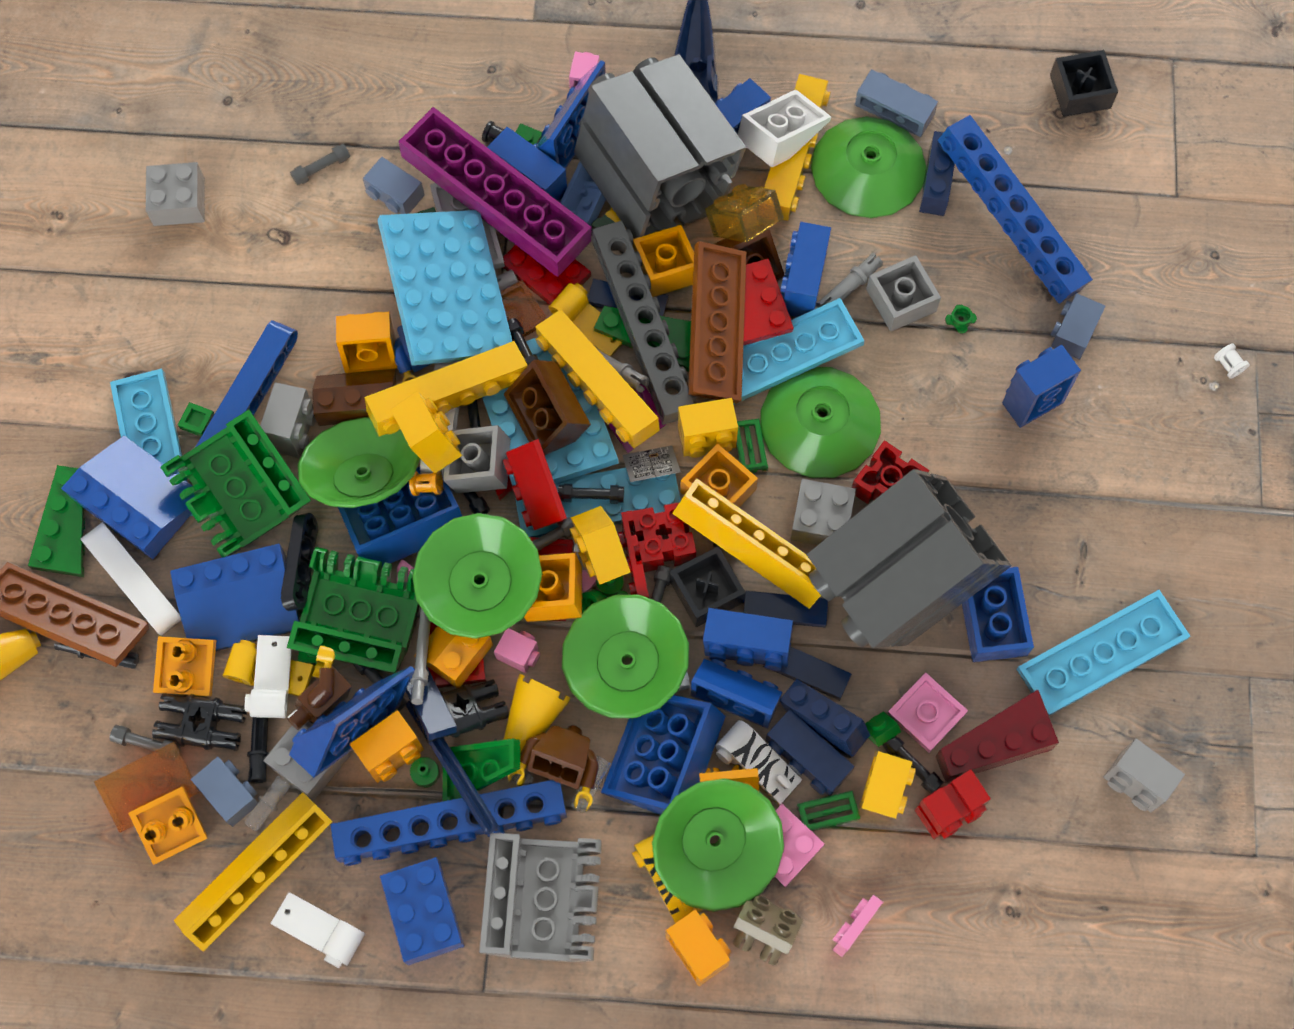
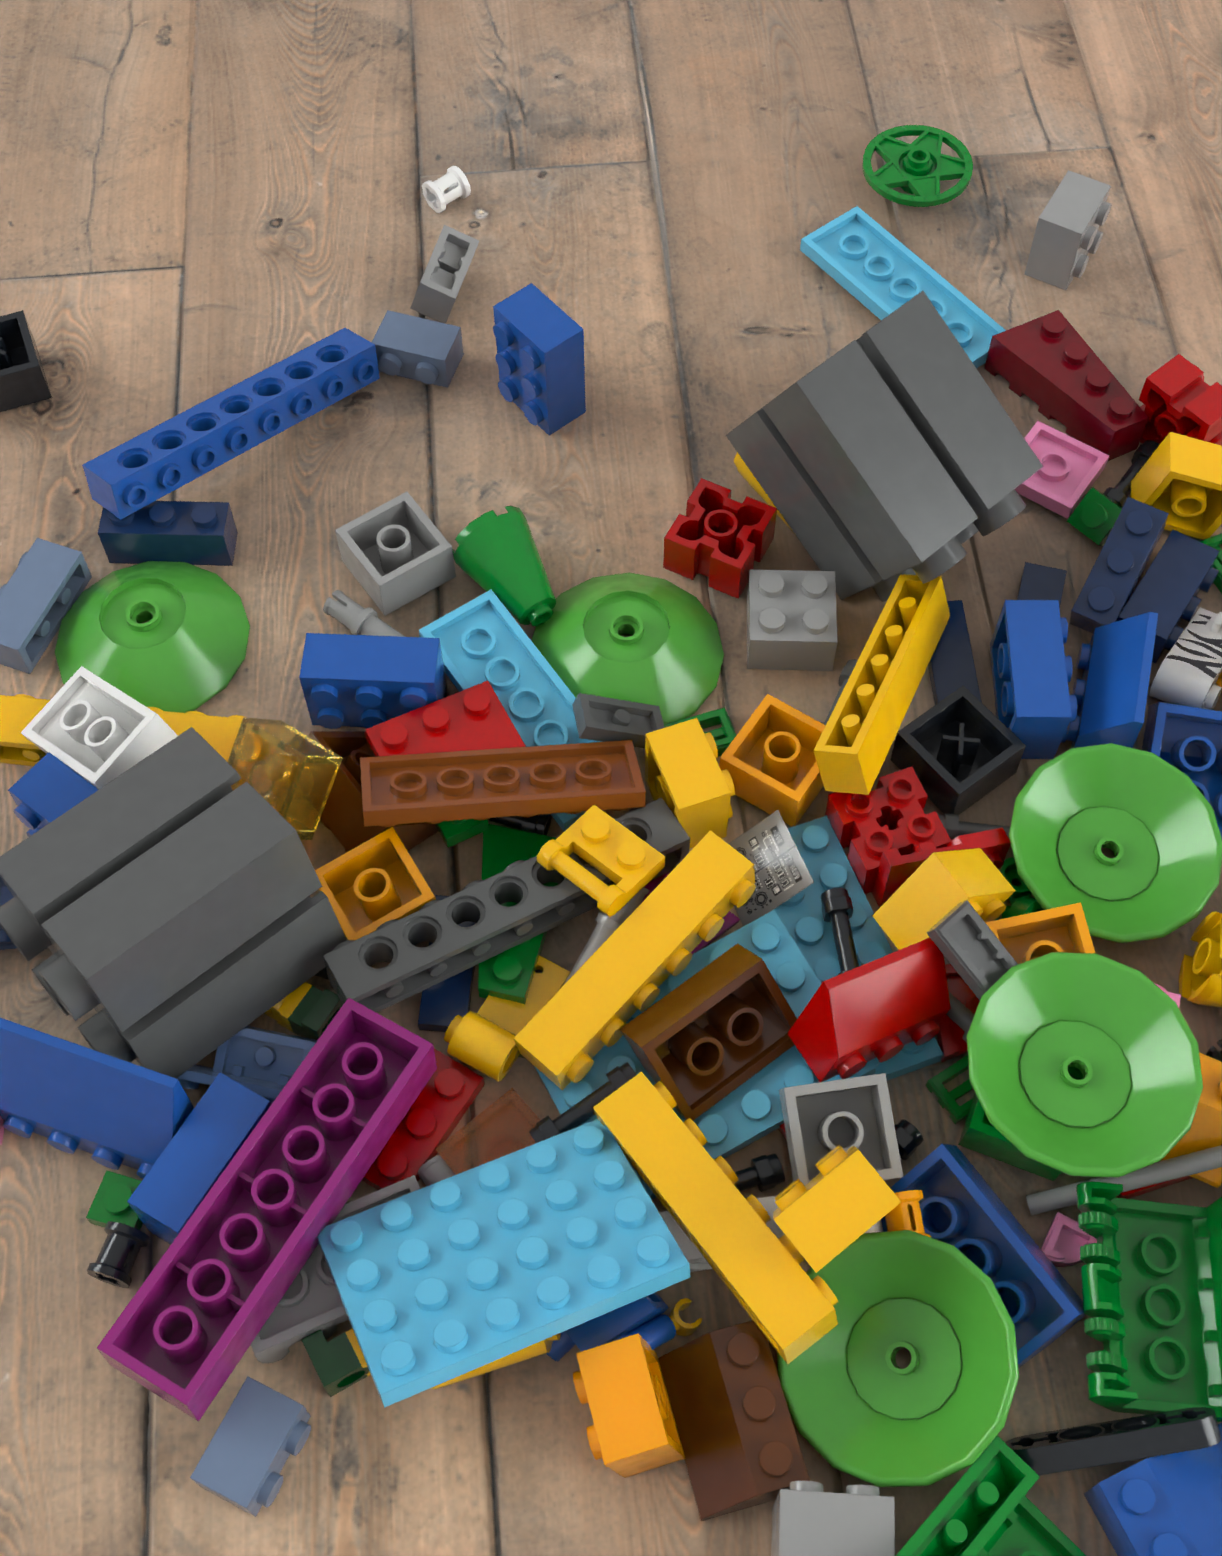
camera: 100 degrees left, 10 degrees down
(554, 534) = (971, 948): none -> dark grey plate
(657, 370) = (611, 851): none -> yellow plate
(756, 398) = (615, 719): none -> dark grey plate
(882, 354) = (504, 558): none -> green cone
(963, 312) = (422, 480): green plate -> none
(1139, 346) = (444, 274): none -> light grey brick
(1230, 689) = (917, 166): none -> green wheel

